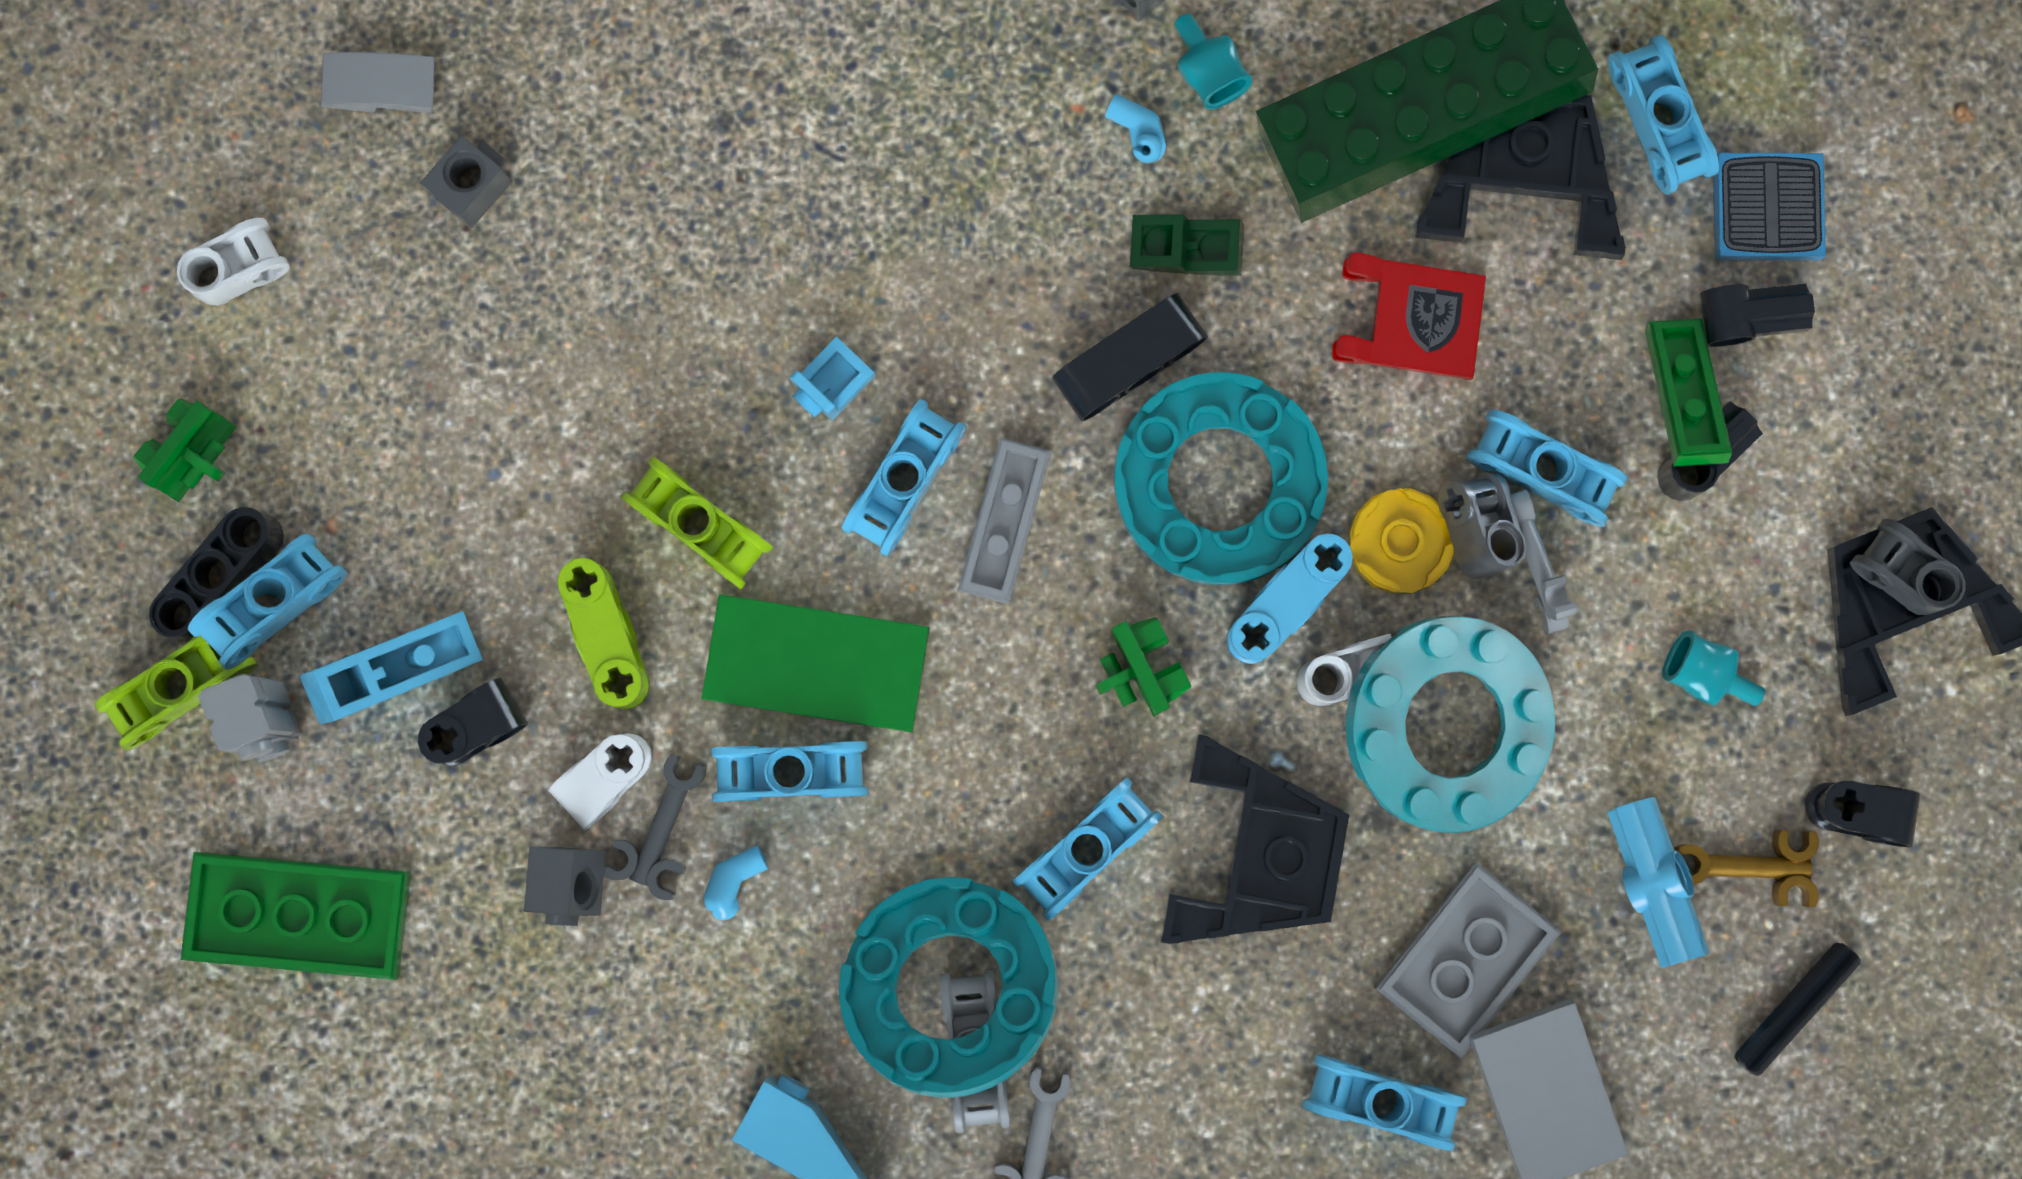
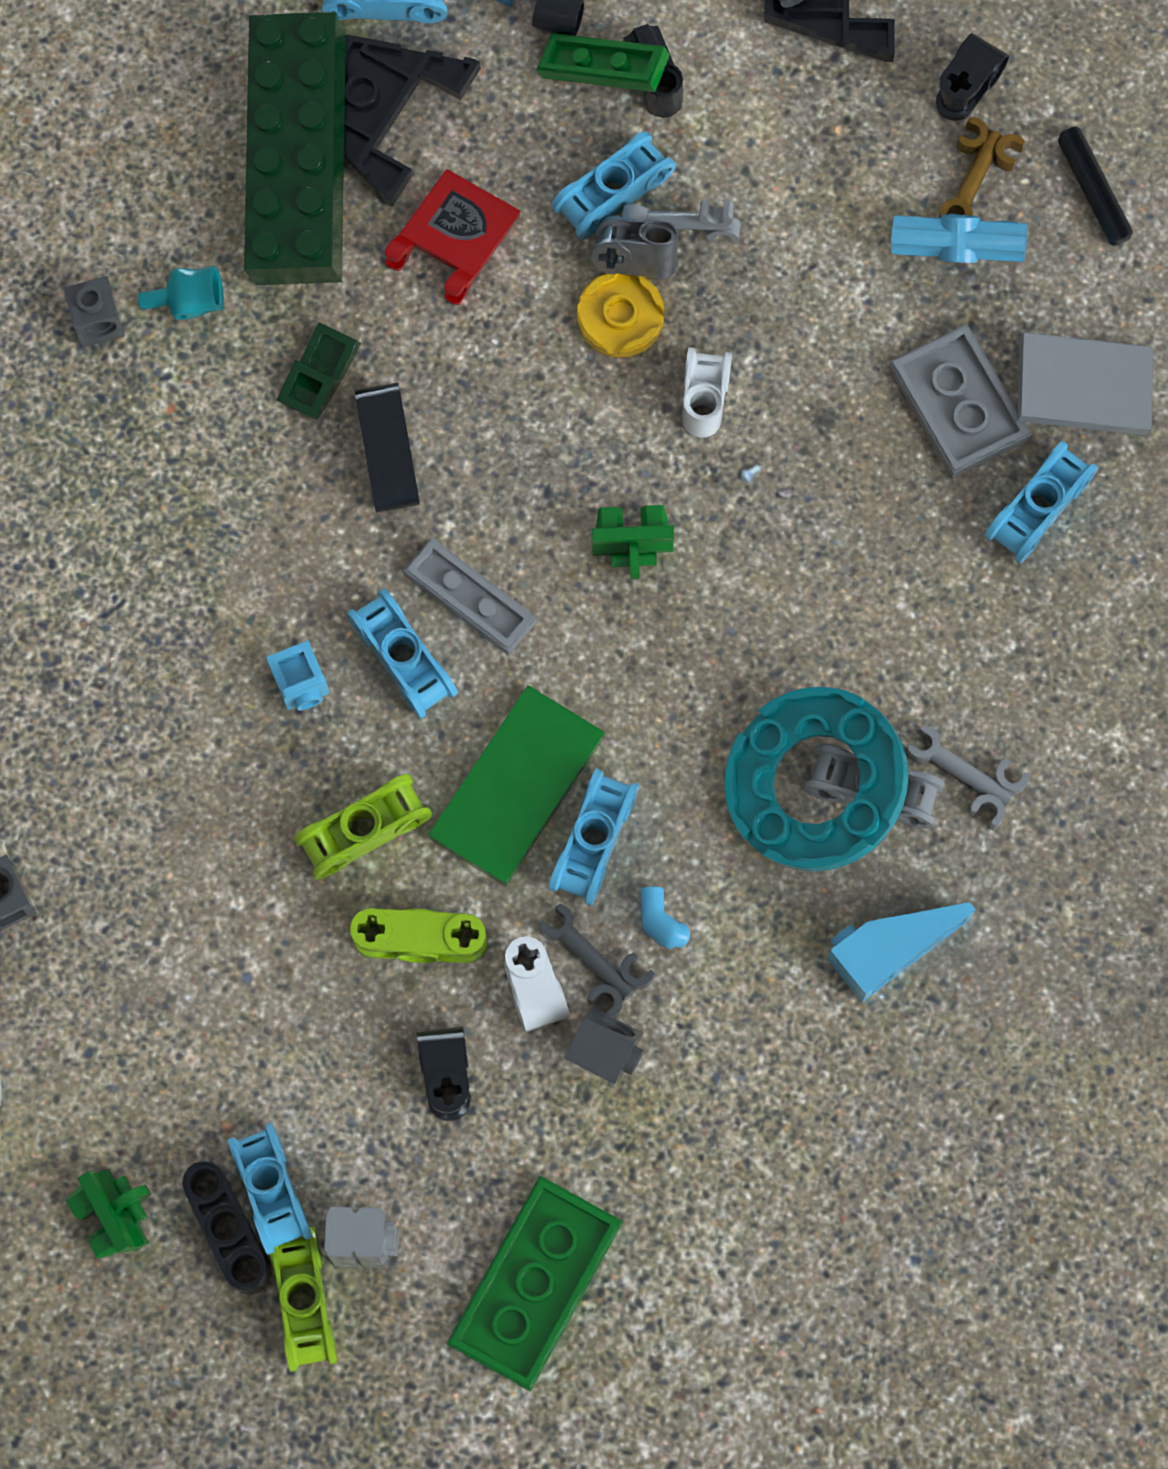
camera: 70 degrees left, 10 degrees down
(390, 668) = (368, 1120): medium azure slope -> none
(1068, 874) = (744, 607): medium azure piece -> none
(1143, 125) = (210, 364): medium azure arm -> none
(1248, 408) = (512, 361): teal plate -> none
(1282, 854) = (822, 498): black wing -> none
(1290, 598) = (628, 409): medium azure piece -> none
(1380, 707) = (760, 382): teal plate -> none
(1708, 671) = (817, 139): teal piece -> none

